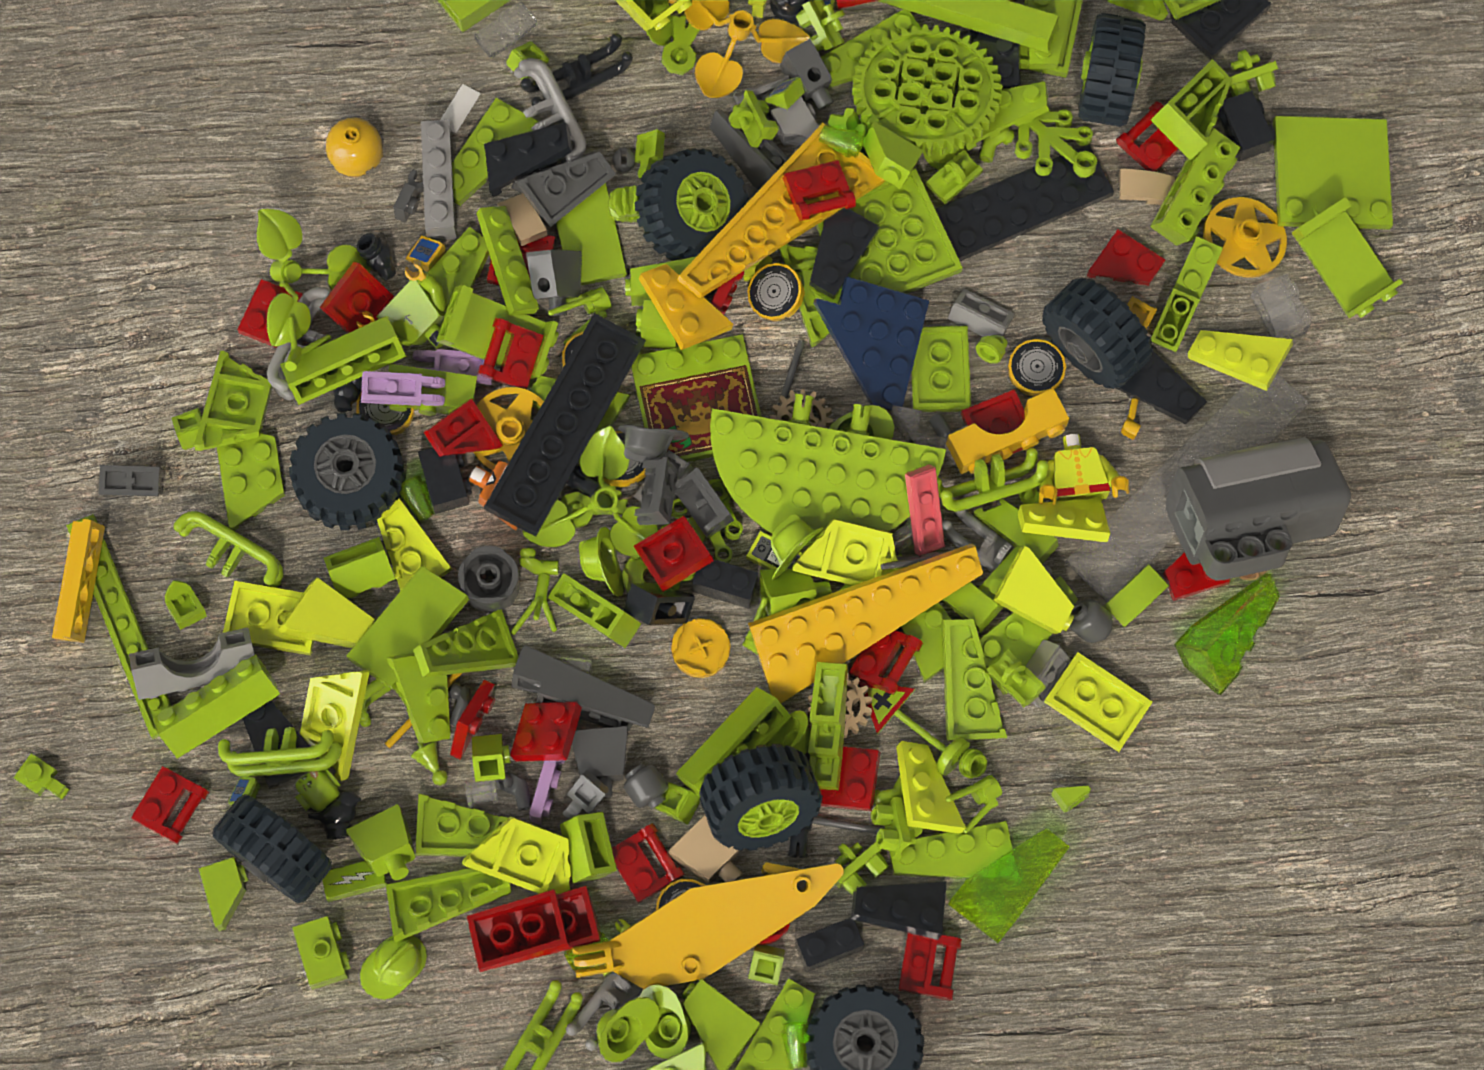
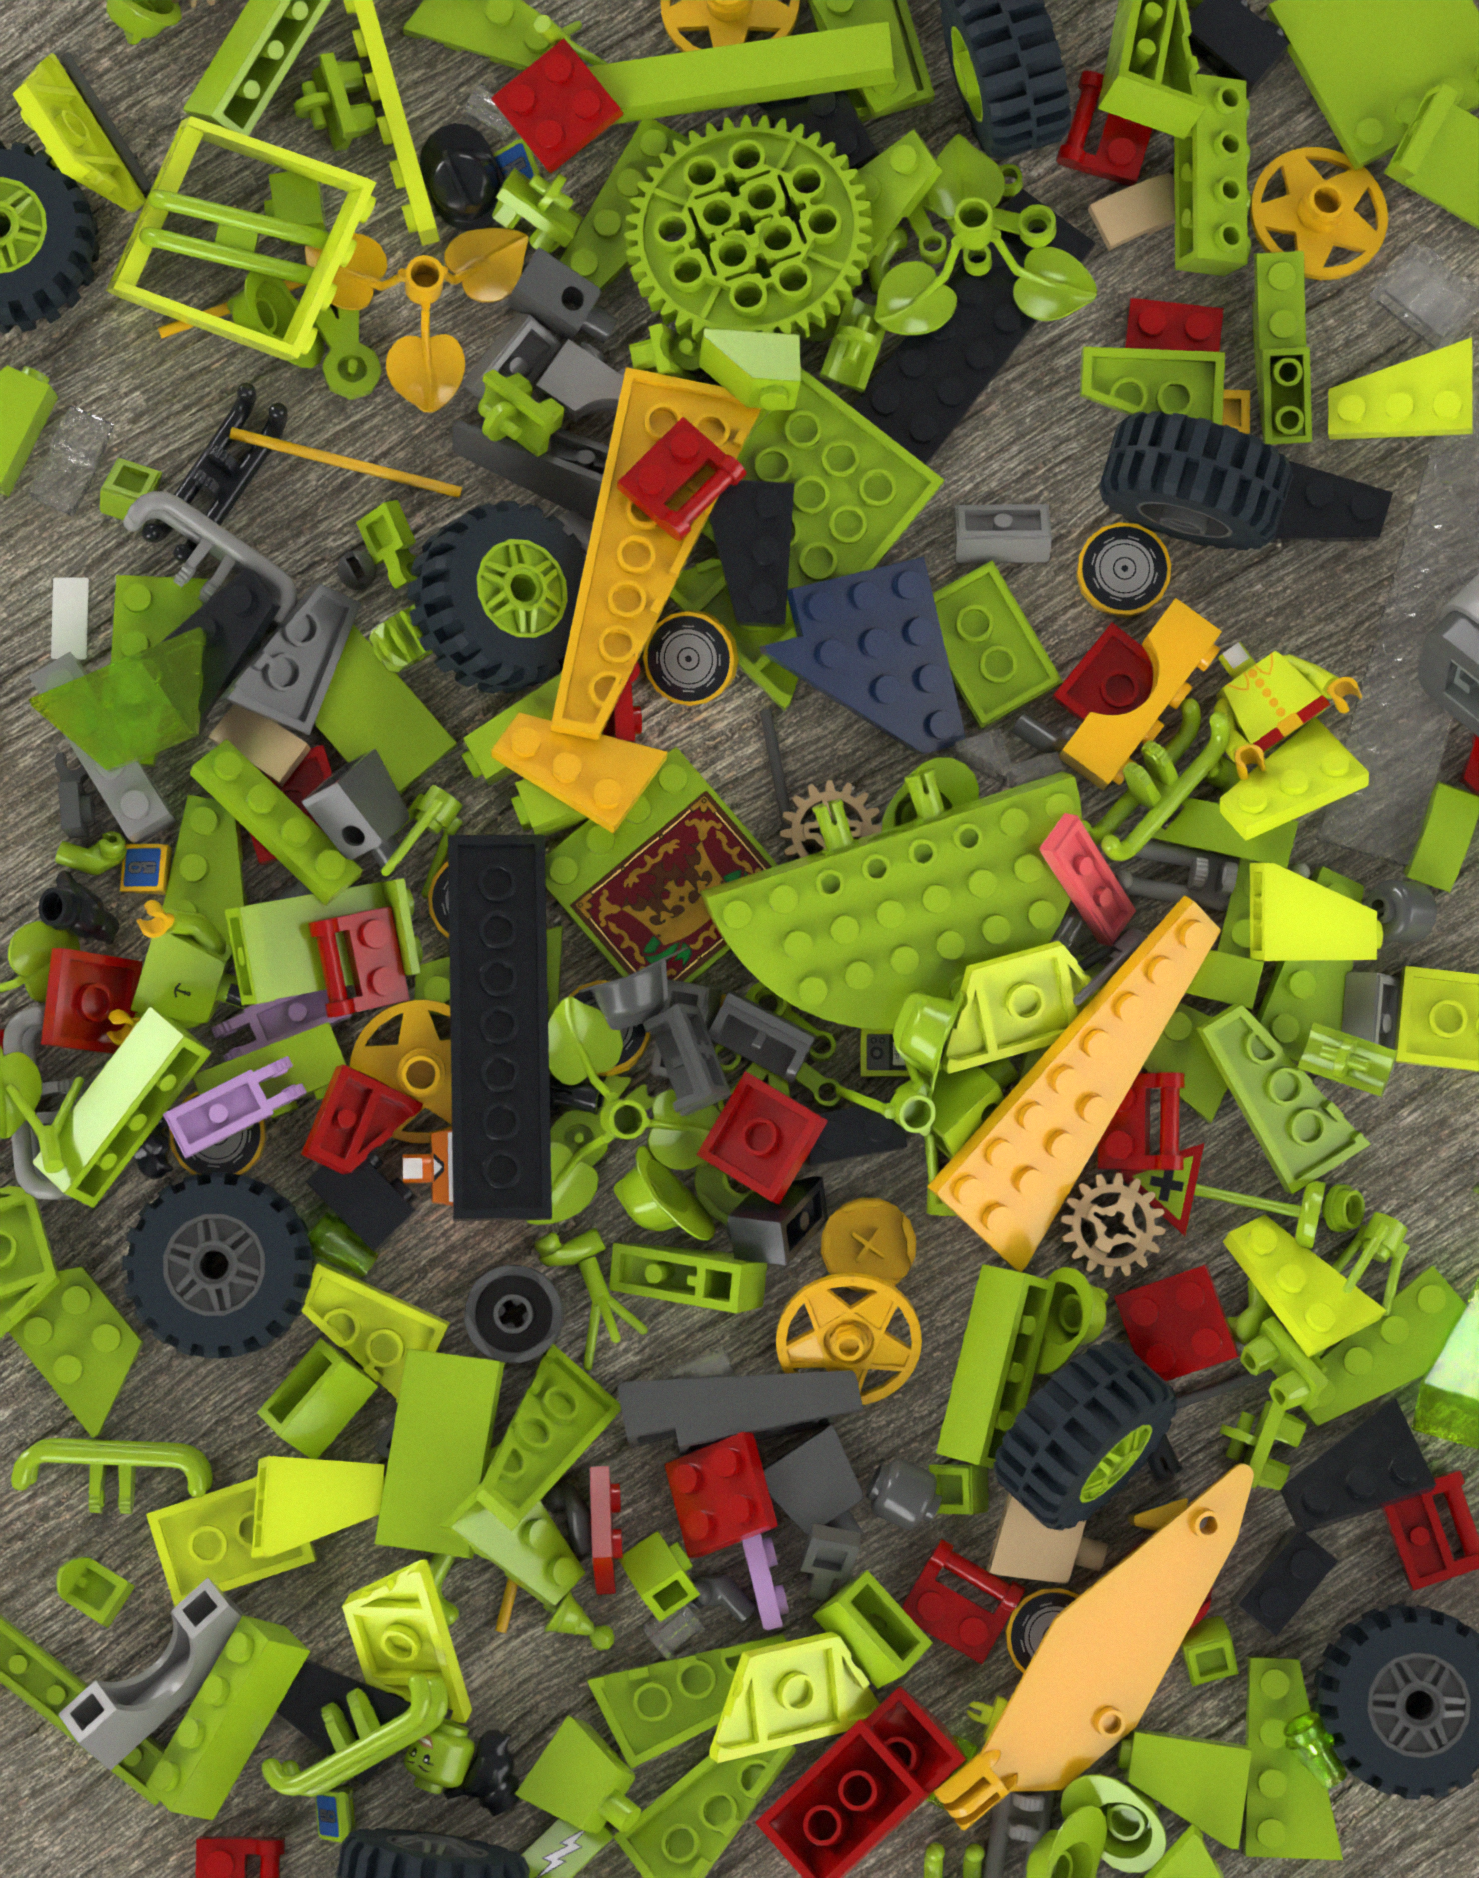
camera: 30 degrees left, 10 degrees up
(403, 235) = (95, 859): none -> lime arm
(466, 159) = (132, 703): none -> clear neon green wing
(648, 102) = (345, 462): none -> yellow axle
(664, 684) = (851, 1335): none -> yellow wheel
(760, 574) = (908, 1106): none -> lime plant
(786, 93) = (544, 347): lime slope -> none
(828, 723) = (1117, 1269): lime slope -> none
(842, 140) = (672, 383): clear neon green cone -> none
(991, 348) = (1046, 575): lime tile -> none
(1059, 125) = (968, 189): none -> lime plant
(1090, 263) = (1154, 381): none -> lime wing
(1130, 427) = (1302, 590): yellow hand -> none

